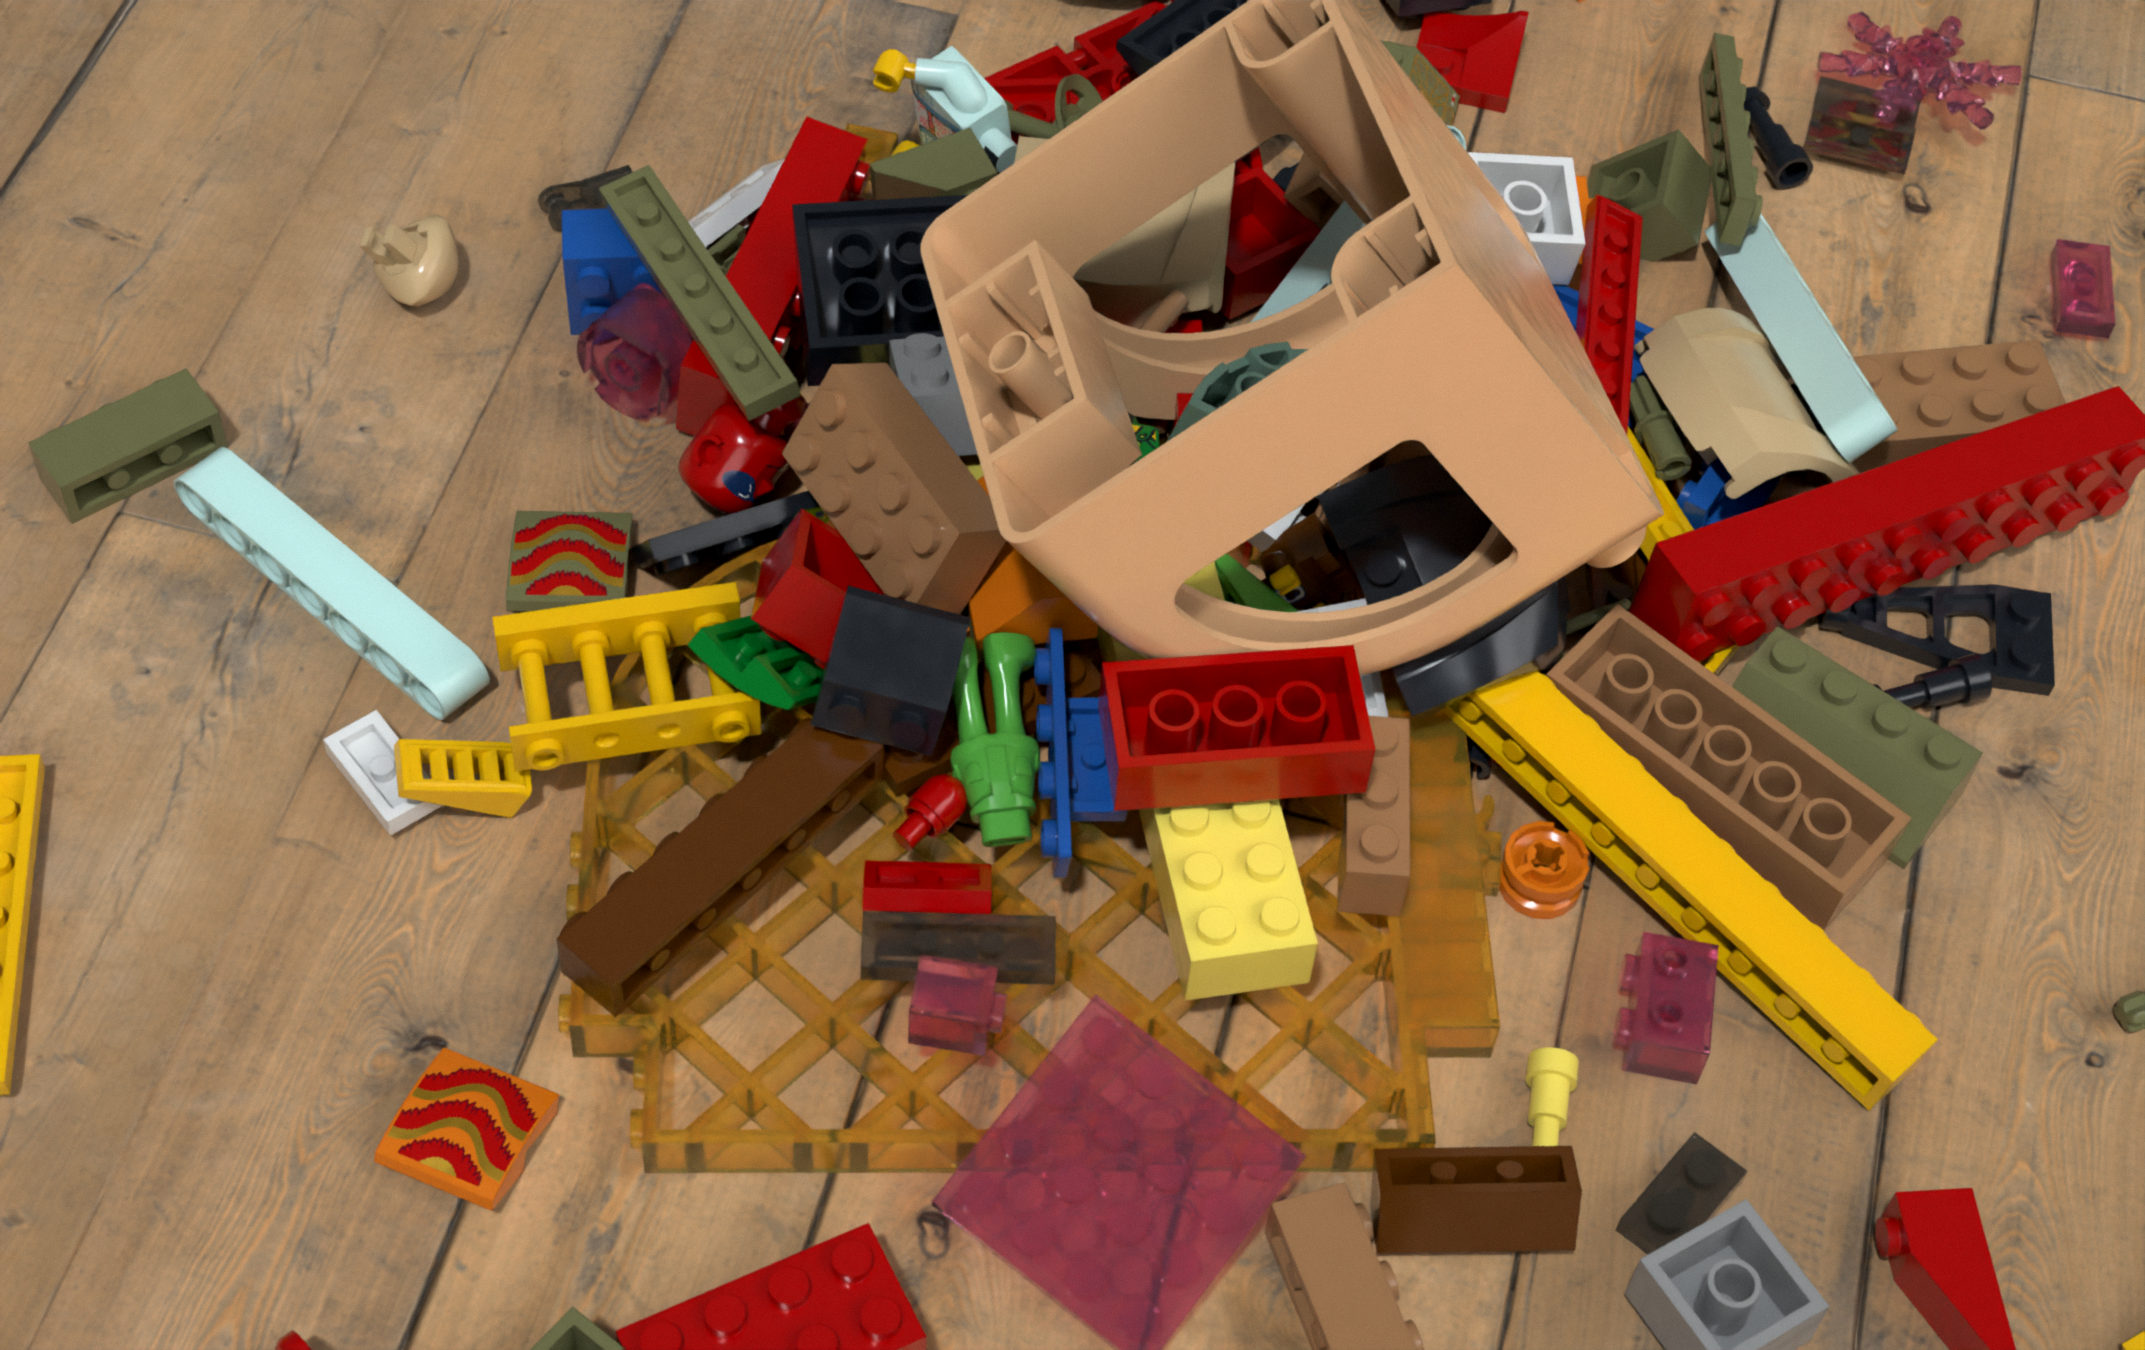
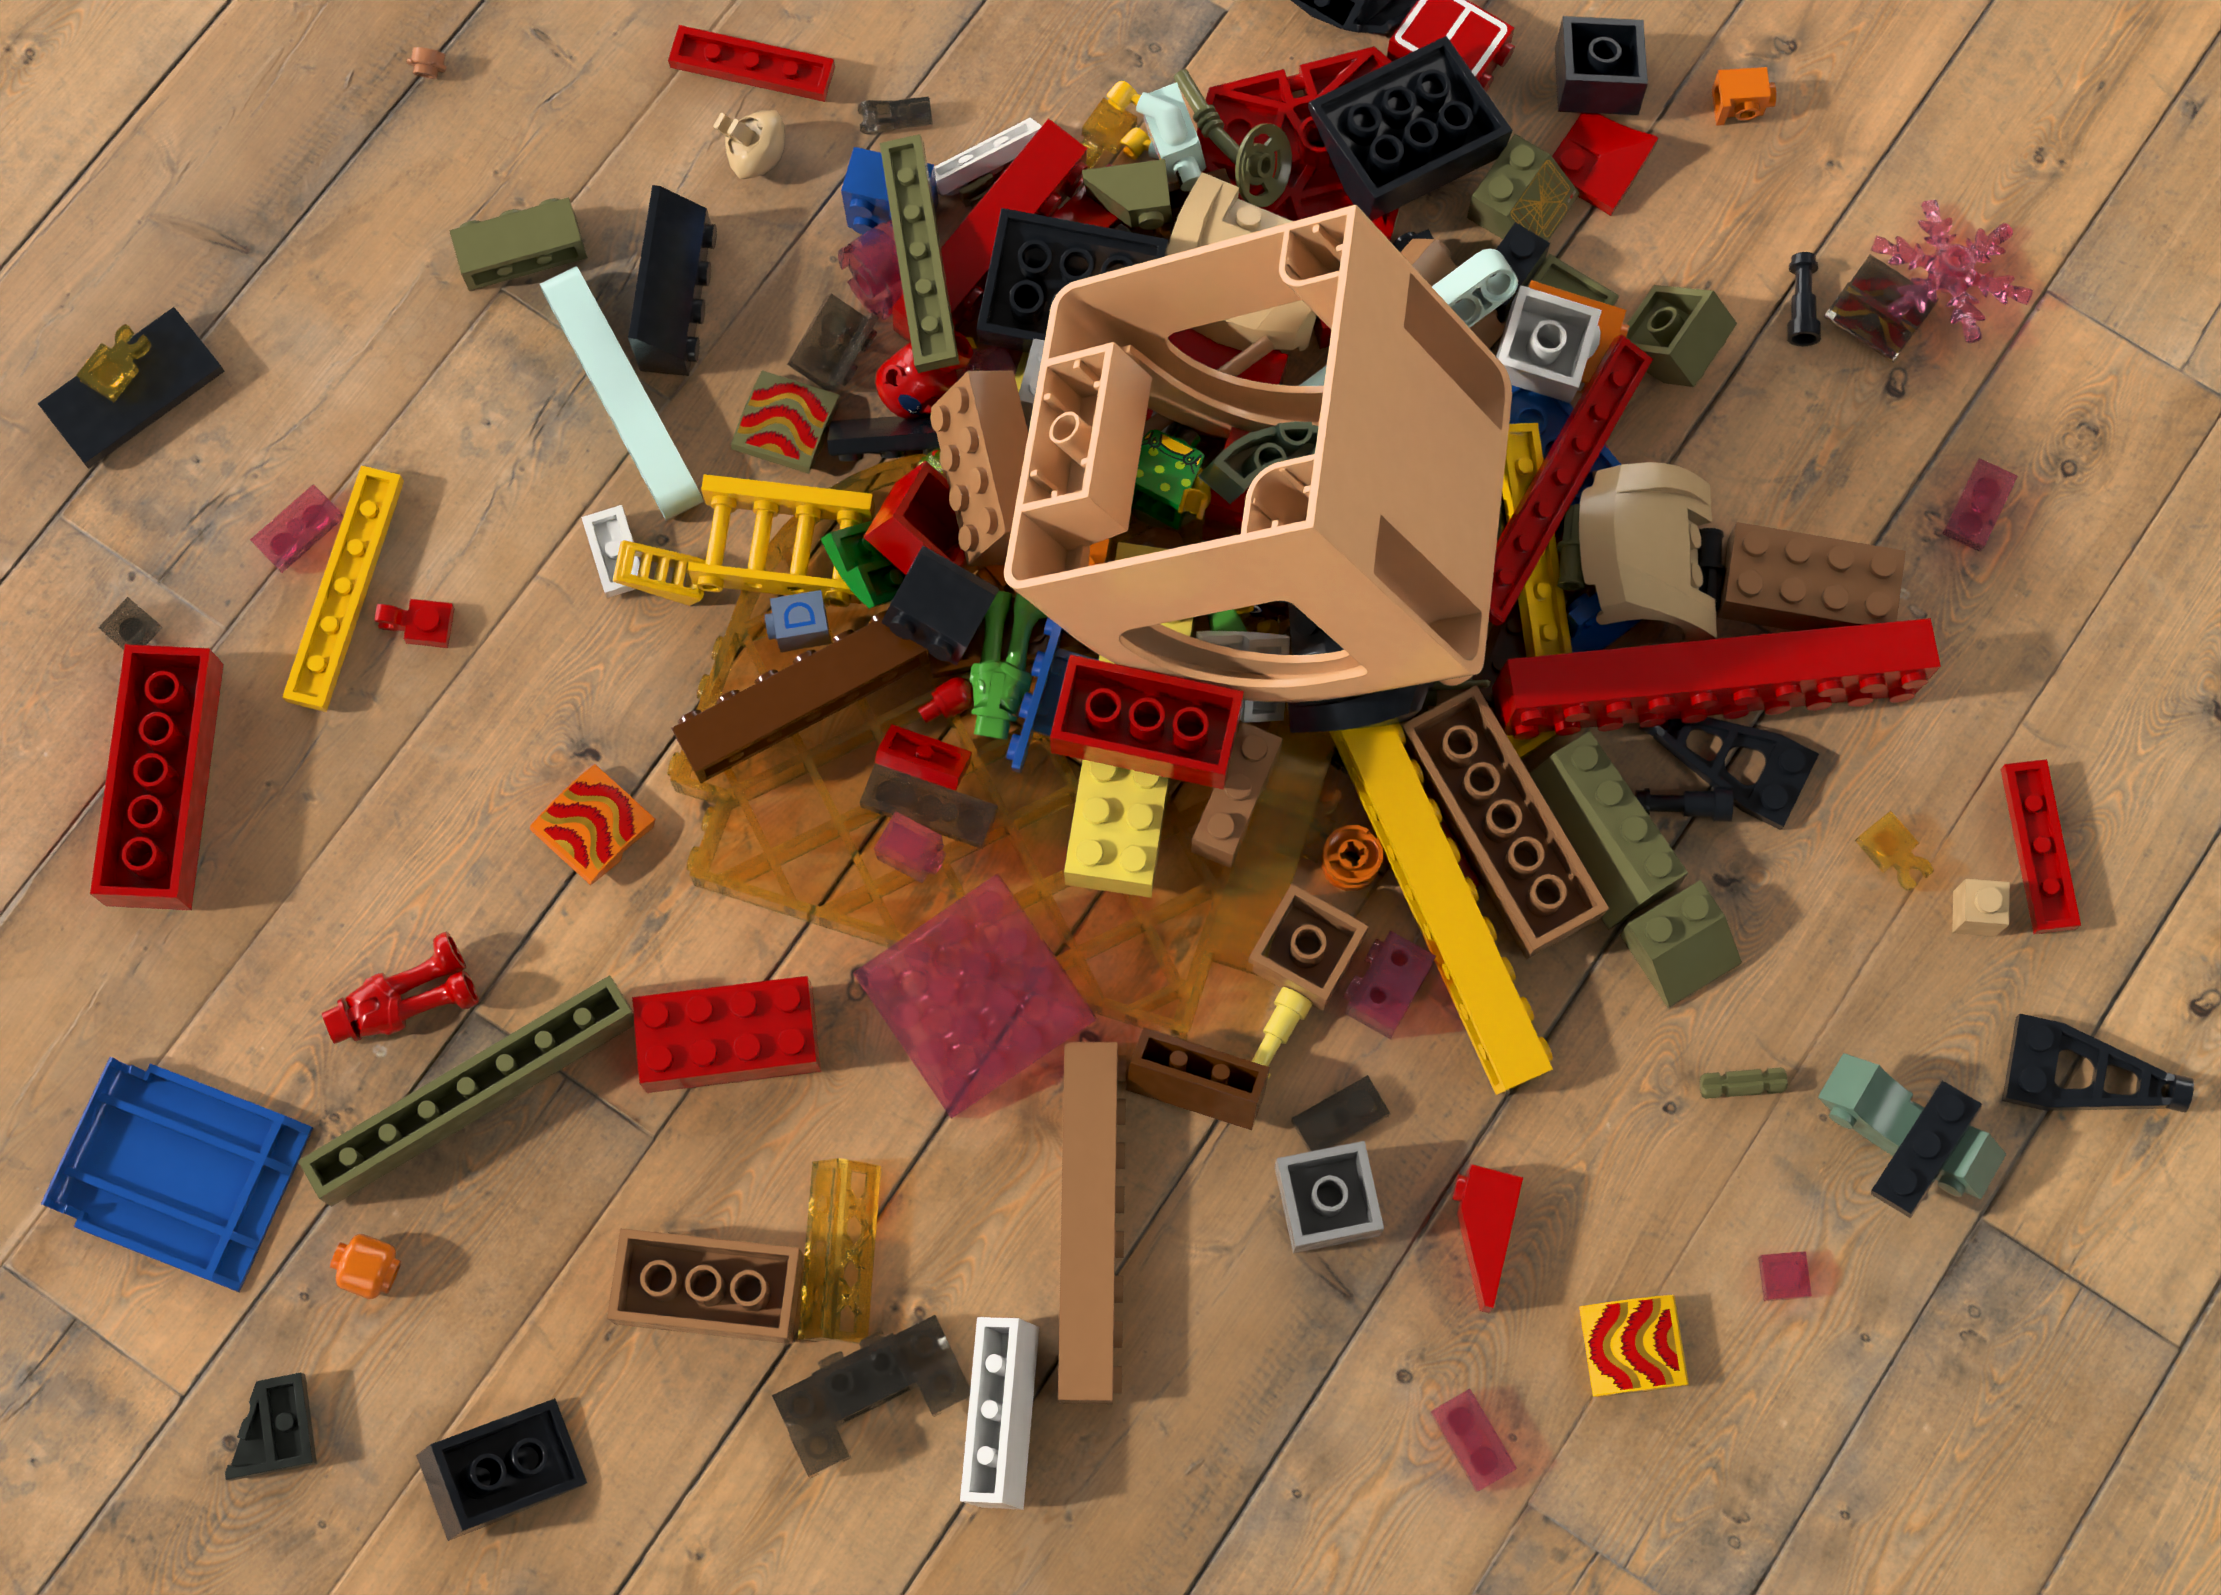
camera: 25 degrees right, 20 degrees up
(126, 938) = (424, 622): none -> red plate
(362, 436) = (671, 284): none -> black slope
(381, 184) = (751, 63): none -> red plate
(604, 456) = (833, 343): none -> clear smoke bracket
(686, 766) = (798, 621): none -> sand blue brick
(1549, 985) = (1309, 947): none -> medium nougat brick
(1728, 141) = (1751, 314): olive plate -> none
(1805, 341) = (1723, 491): light aqua beam -> none
(2009, 849) = (1682, 943): none -> olive slope

